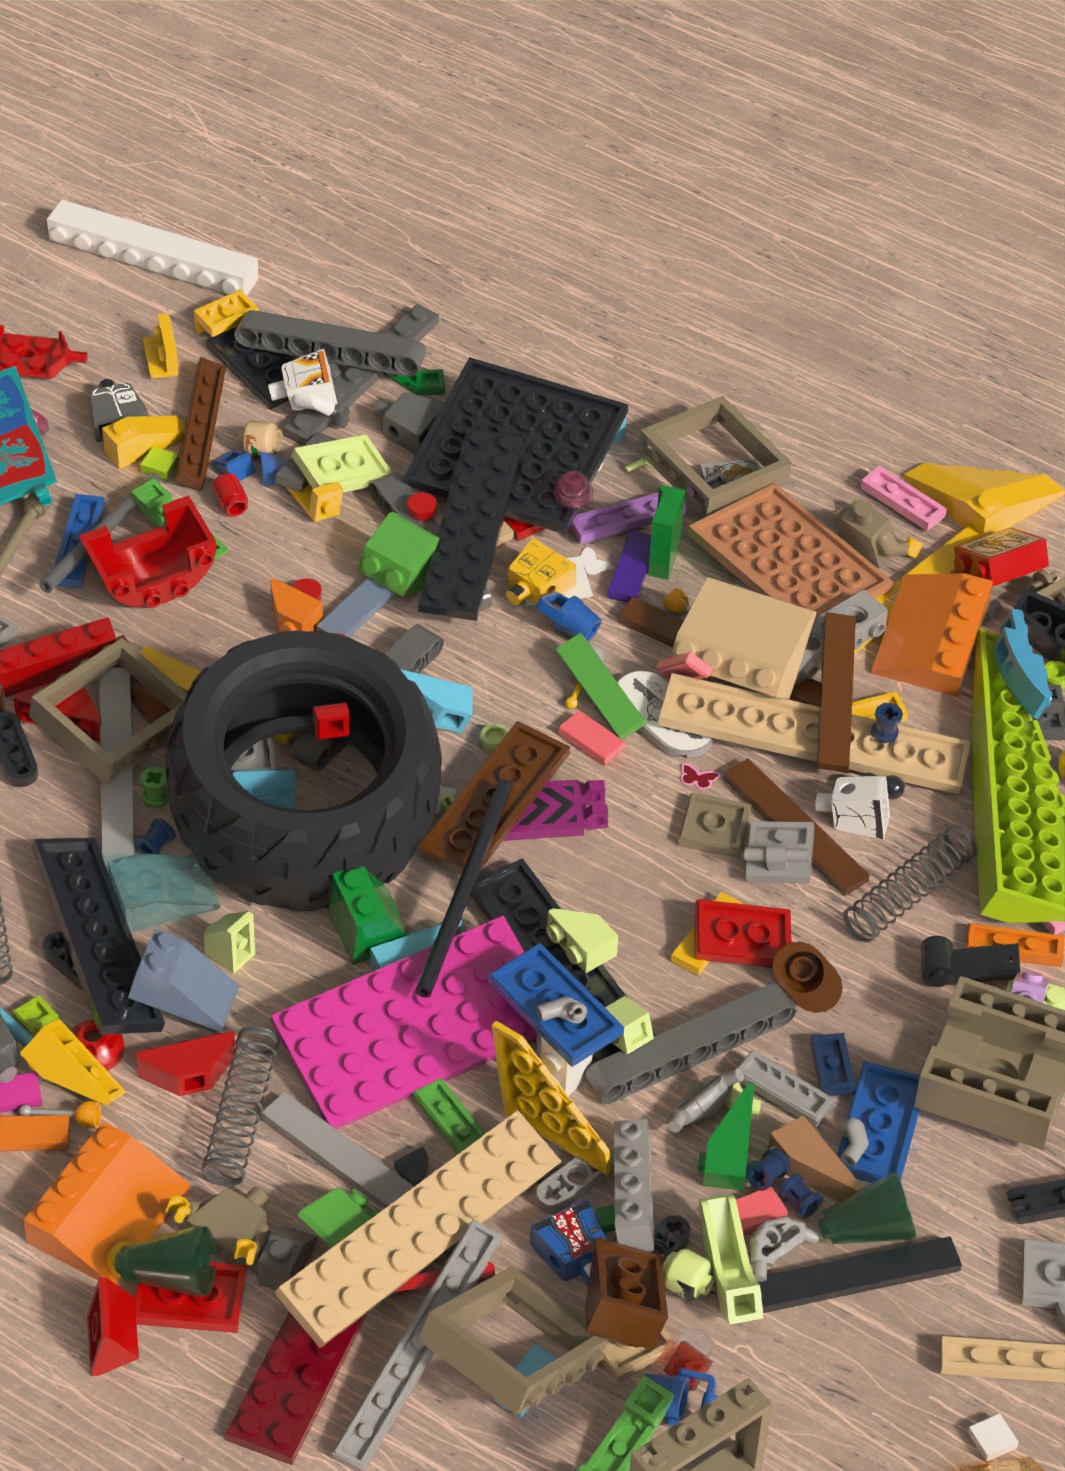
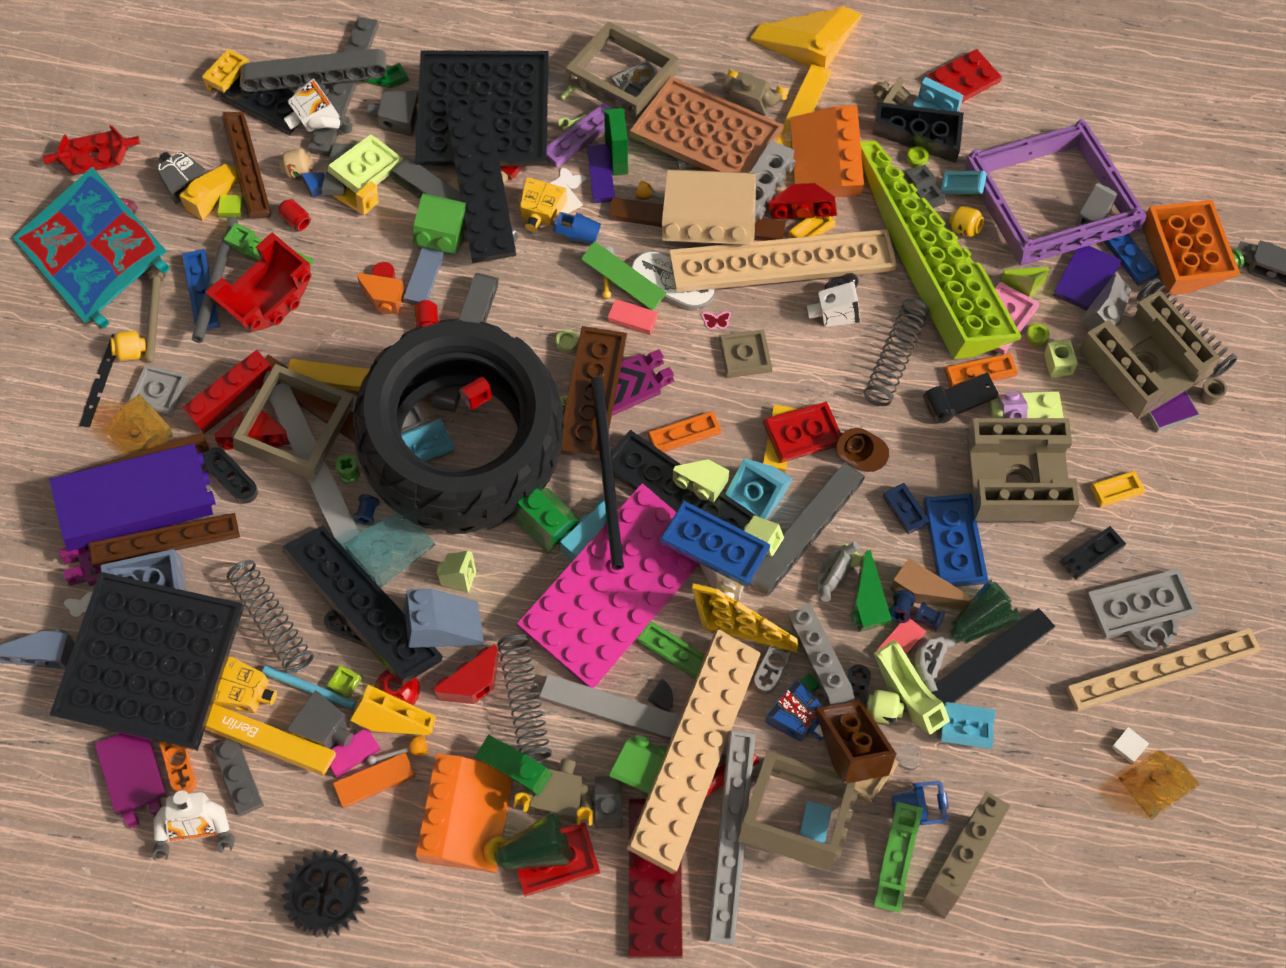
camera: 20 degrees left, 15 degrees up
(111, 1328) = (514, 911): red slope -> none
(152, 248) = (146, 35): white brick -> none
(161, 349) = (191, 115): yellow bracket -> none
(191, 1167) = (514, 764): none -> green slope
(235, 463) = (285, 189): blue slope -> none
(422, 506) = (438, 179): red tile -> none
(448, 701) = (524, 325): medium azure slope -> none
(564, 1008) = (725, 547): light grey arm -> none
(573, 490) = (540, 132): clear pink cone -> none
(592, 887) = (685, 432): none -> orange tile
(615, 496) = (568, 124): none -> yellowish green hand
(653, 974) = (758, 487): none -> medium azure slope
(686, 665) = (677, 241): coral tile -> none
(688, 1358) = (913, 773): clear red tile -> none
(776, 806) = (800, 335): reddish brown tile -> none
(779, 852) = (801, 360): light grey plate -> none
(785, 1089) = (882, 539): light grey plate -> none
(787, 1333) = (969, 725): none -> medium azure bracket
(836, 692) = (788, 226): reddish brown tile -> none
(857, 1136) = (951, 562): light grey arm -> none
(882, 677) = (803, 202): none -> red slope
(887, 718) = (831, 235): dark blue bush -> none
(903, 498) = (759, 57): bright pink plate -> none
(1002, 555) = (848, 81): brick -> none
(1020, 667) = (900, 164): dark azure slope -> none

